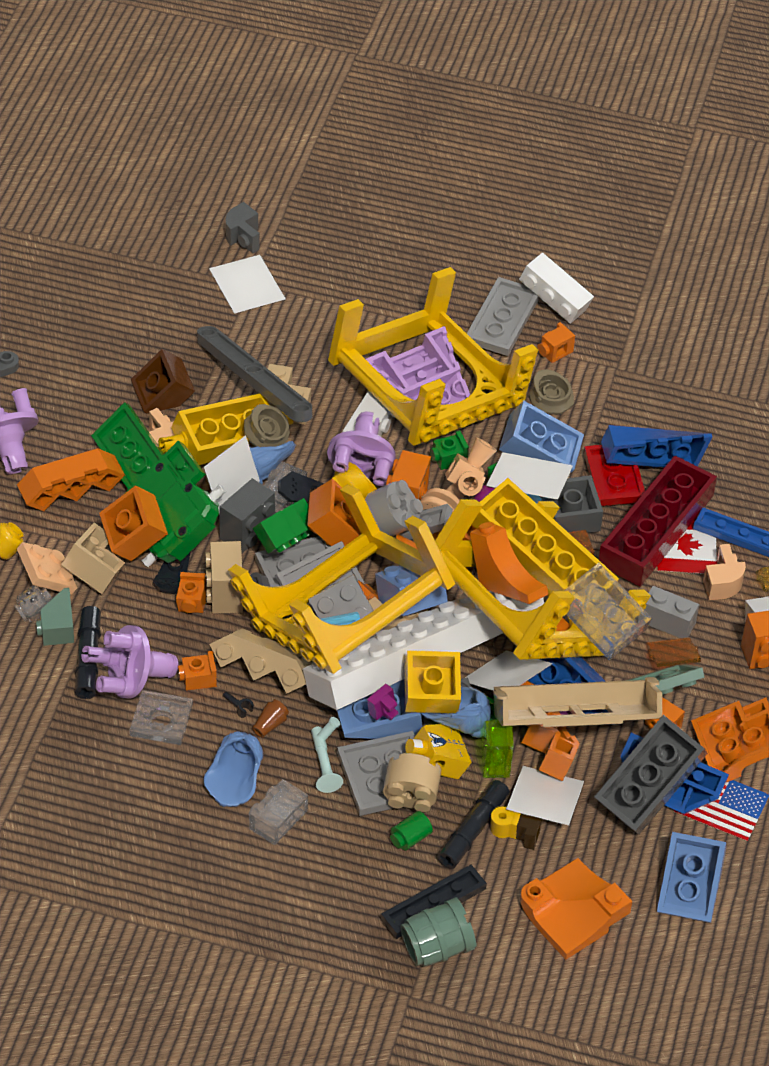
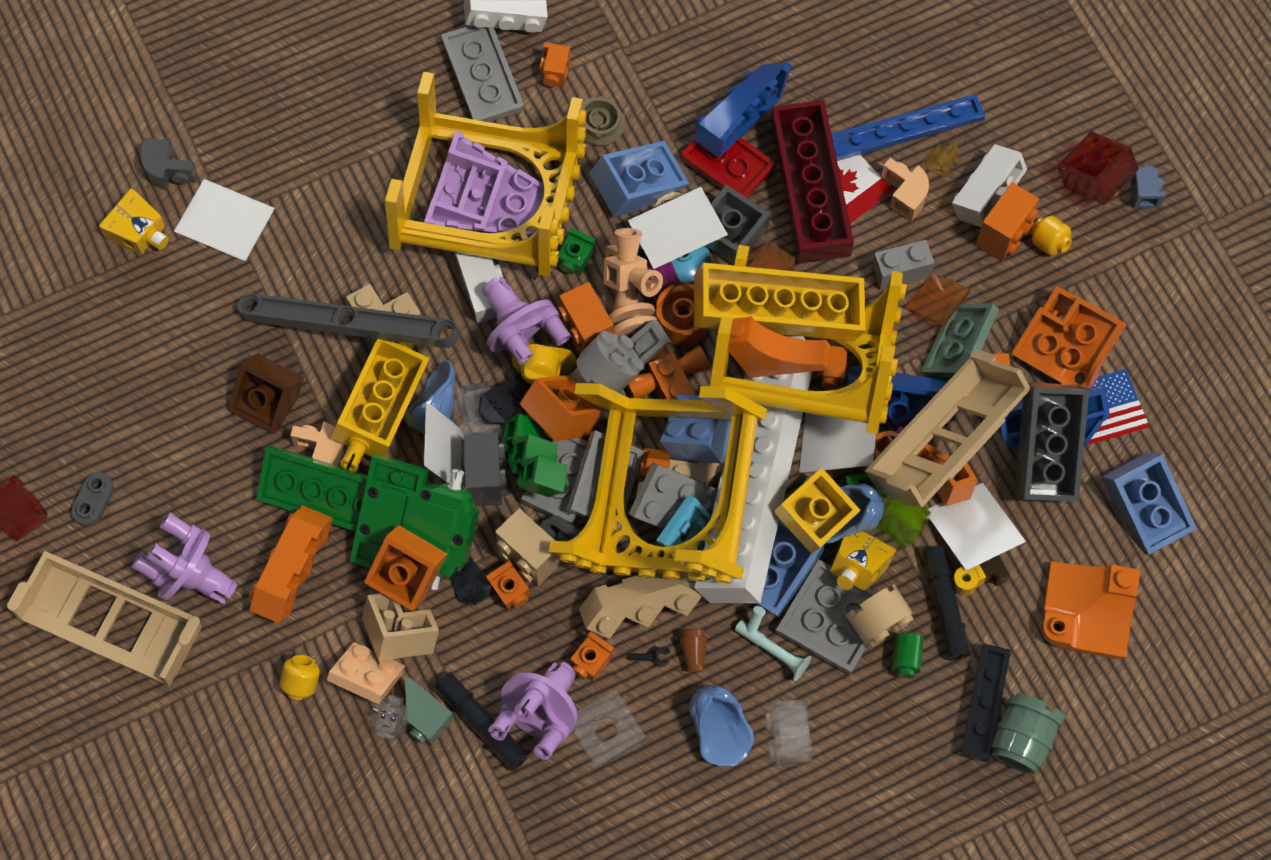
camera: 40 degrees left, 20 degrees up
(186, 244) = (134, 224): none -> yellow torso
(266, 426) = (418, 370): dark tan hat -> none
(383, 703) = (791, 563): magenta tile -> none
(606, 611) = (891, 320): clear brick -> none

